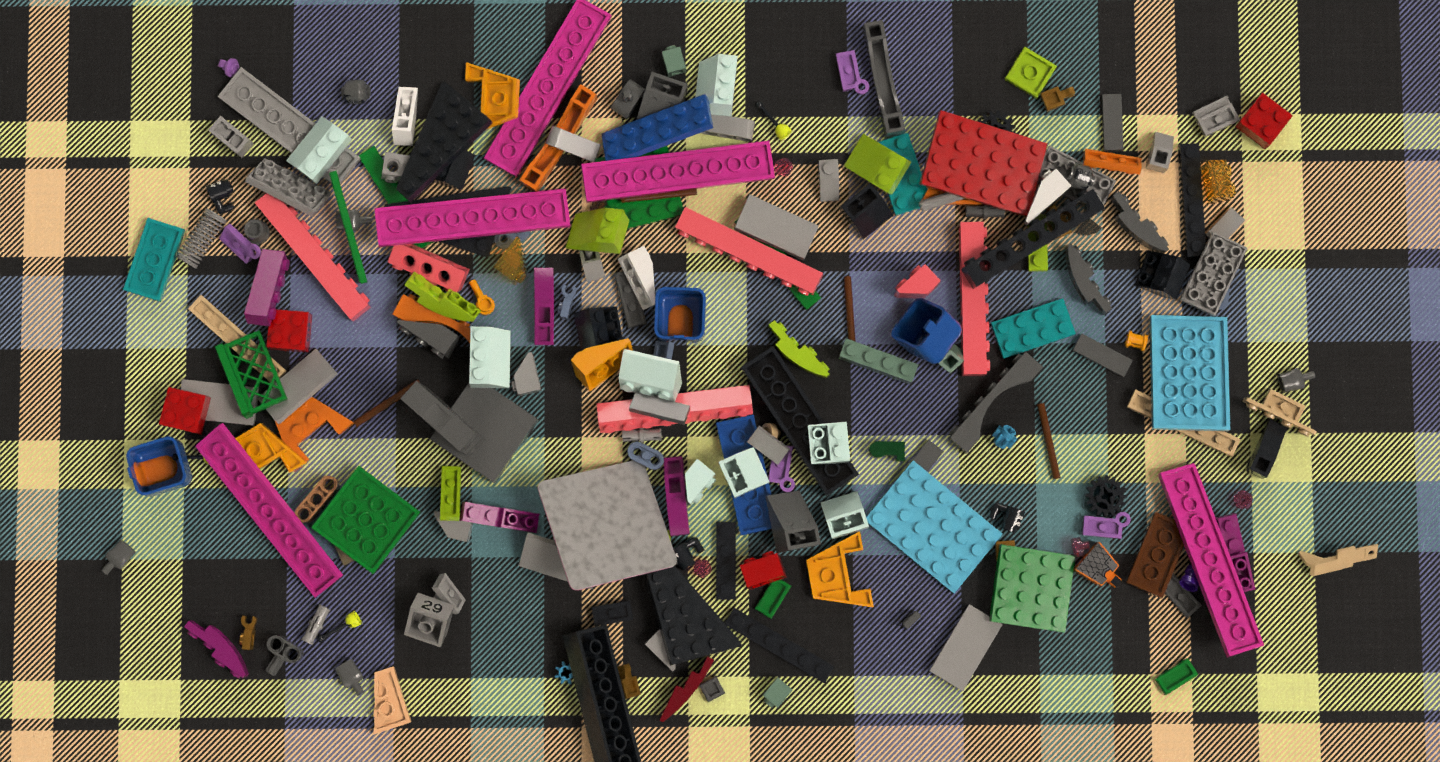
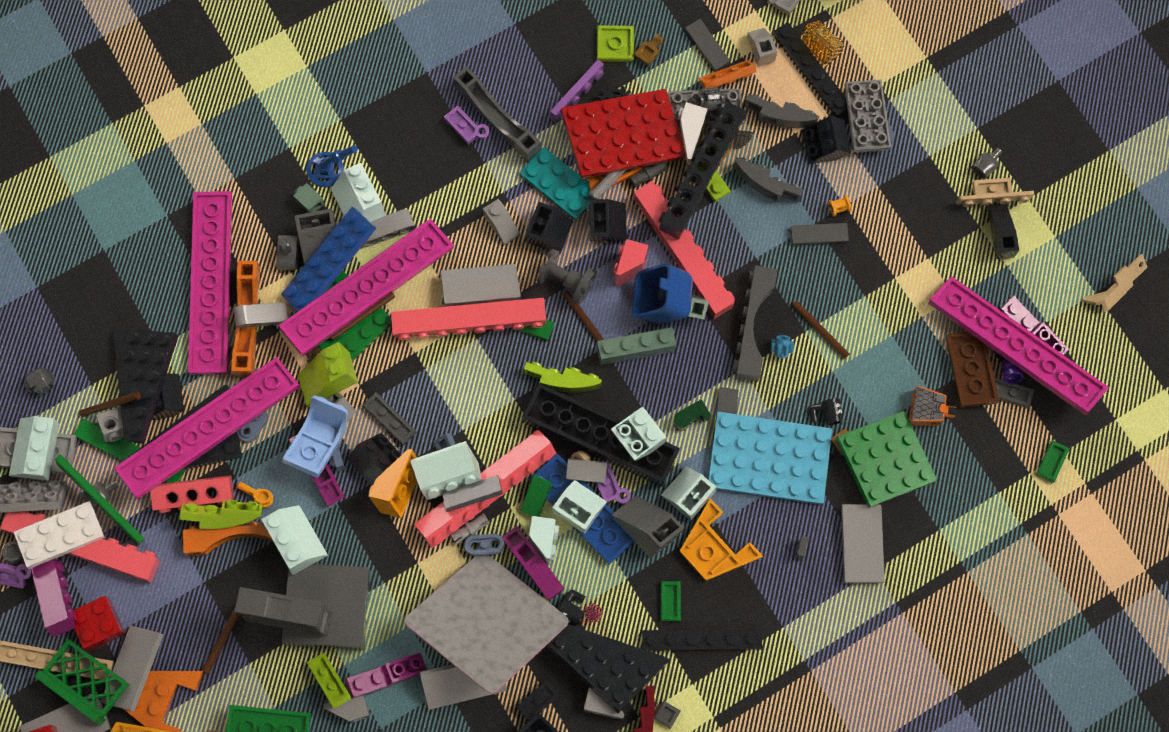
camera: 35 degrees left, 10 degrees down
(299, 238) = (59, 535): none -> white plate
(402, 149) = (110, 404): none -> reddish brown bar
(405, 116) = (96, 376): white slope -> none
(434, 335) = (233, 549): dark grey slope -> none
(498, 94) = (169, 309): light orange wing -> none
(512, 263) = (266, 446): clear yellow slope -> none
(526, 377) = (337, 538): light grey slope -> none
(557, 283) = (318, 437): none -> light blue bracket
(640, 275) = (386, 392): white slope -> none
(680, 314) = (441, 403): blue piece -> none
(708, 40) = (326, 167): none -> blue dish
(713, 441) = (536, 496): none -> green tile
(725, 560) = (610, 594): black plate -> none
(763, 570) = (648, 580): red brick -> none
(776, 693) = (726, 682): sand green brick -> none
(781, 130) = (436, 204): hinge -> none
(783, 162) = (455, 229): clear pink plate -> none
(858, 270) = (573, 280): none -> dark grey piece
(877, 164) = (534, 183): lime slope -> none
(922, 234) = (607, 220): none -> black slope
(976, 96) = (582, 86): none -> medium lavender plate
(1033, 328) = (748, 245): teal plate -> none
(1079, 546) = (902, 401): clear pink tile -> none
(1102, 487) = (903, 351): black gear -> none
(1104, 526) = (912, 372): medium lavender hinge -> none
(1189, 373) = (900, 205): medium azure plate -> none
(1217, 440) = (921, 249): tan plate -> none
(1227, 224) = (852, 71): light grey tile -> none
(1238, 499) = (1013, 279): clear pink plate -> none

